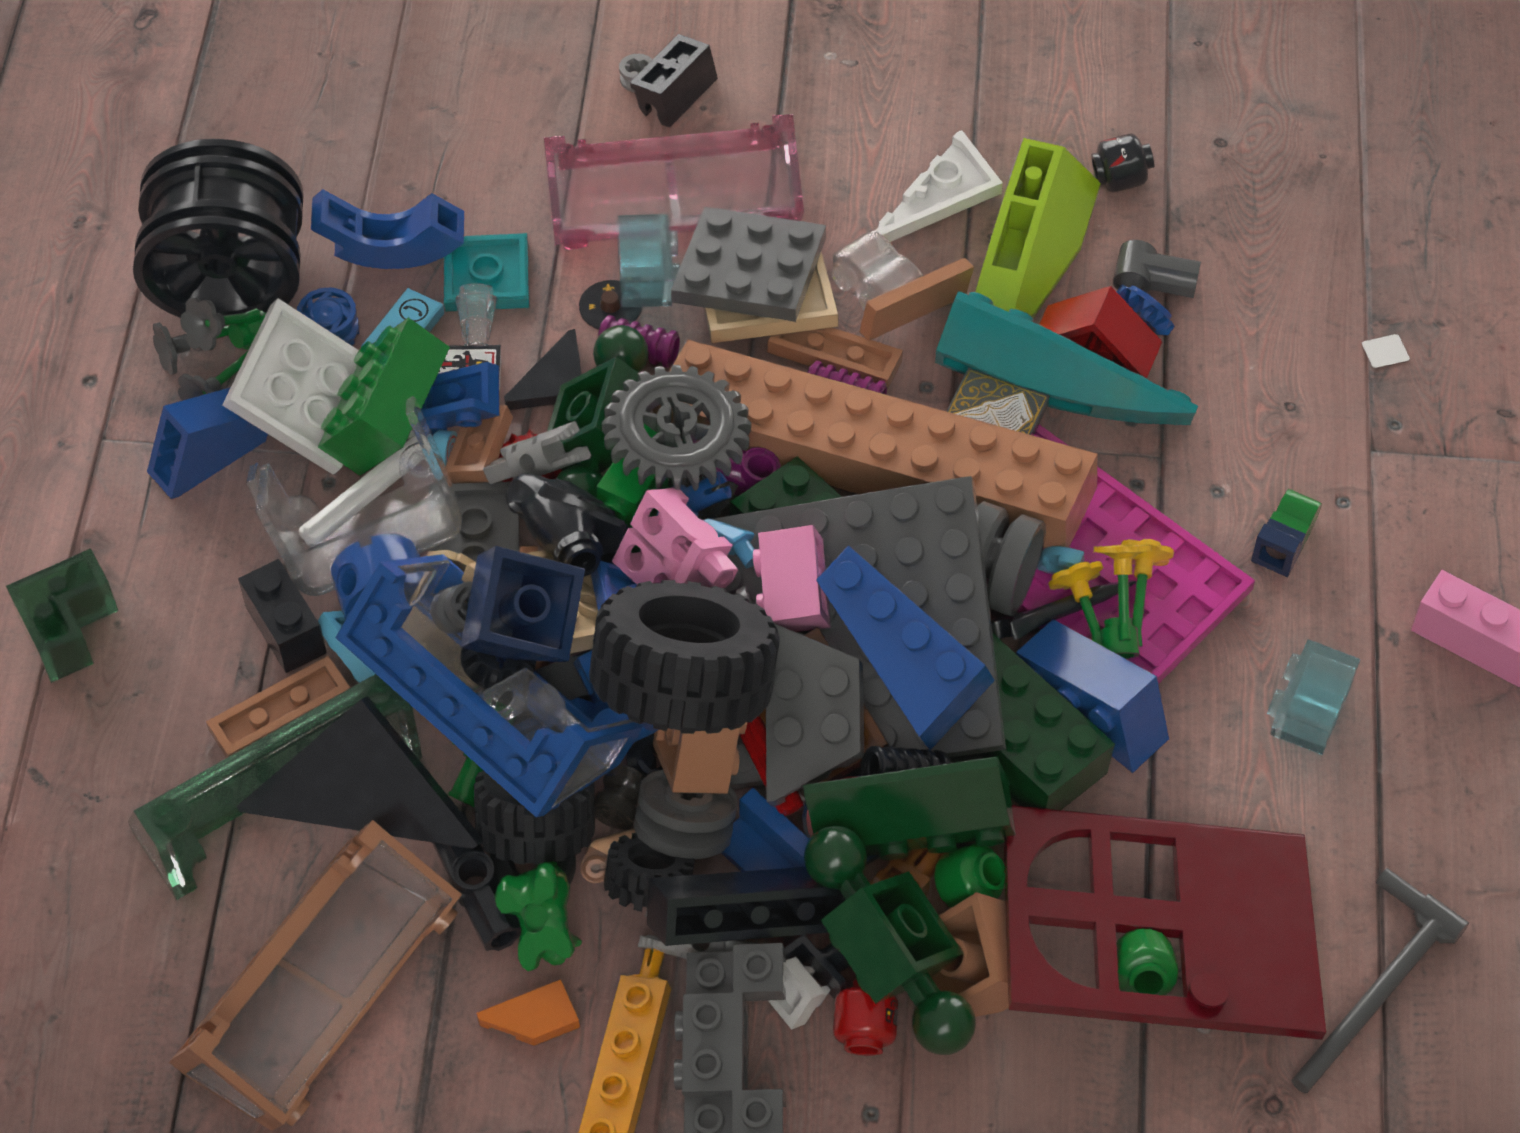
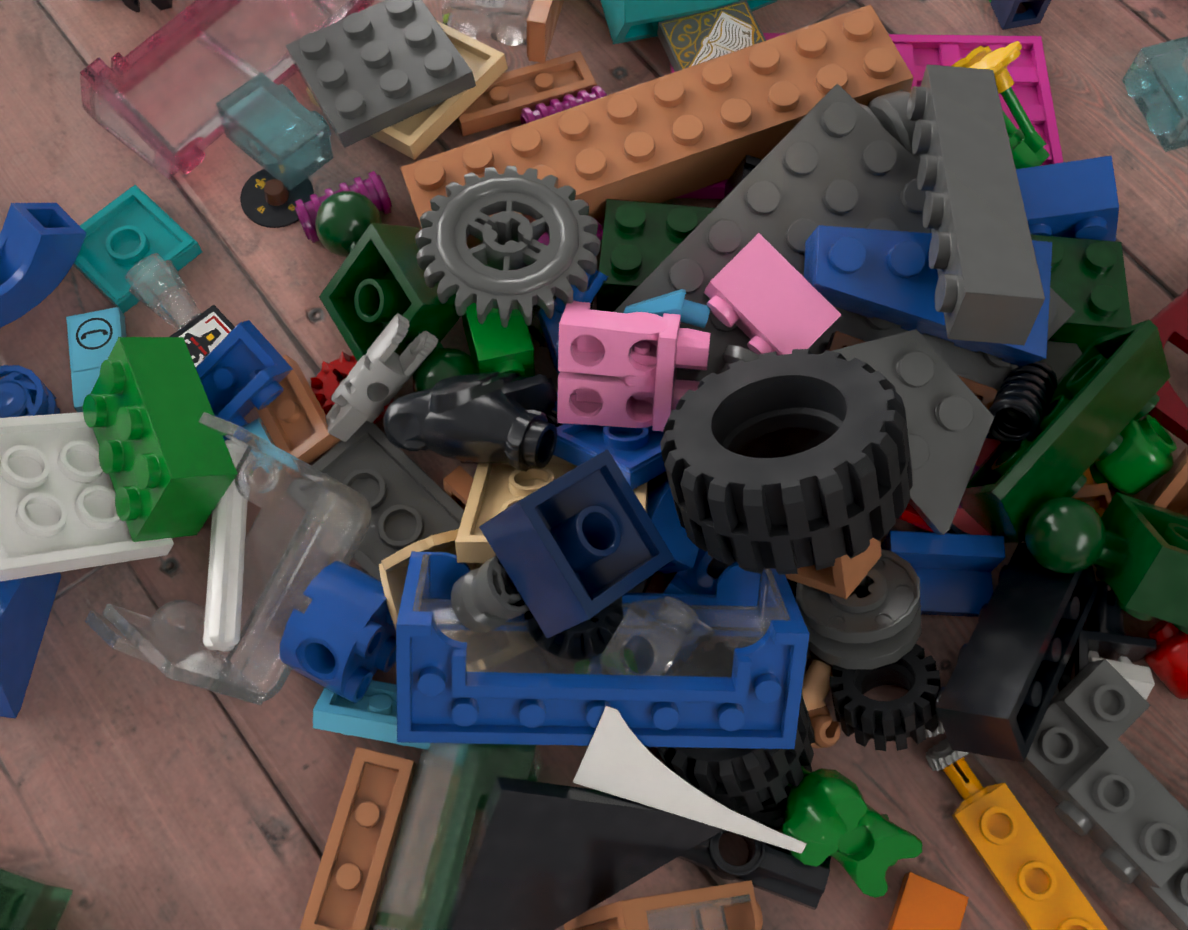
camera: 45 degrees left, 10 degrees up
(282, 615) = (265, 745): black brick -> none
(438, 753) = (627, 769): none -> white sticker
(543, 380) = (291, 297): black tile -> none
(949, 595) = (973, 208): none -> dark grey brick

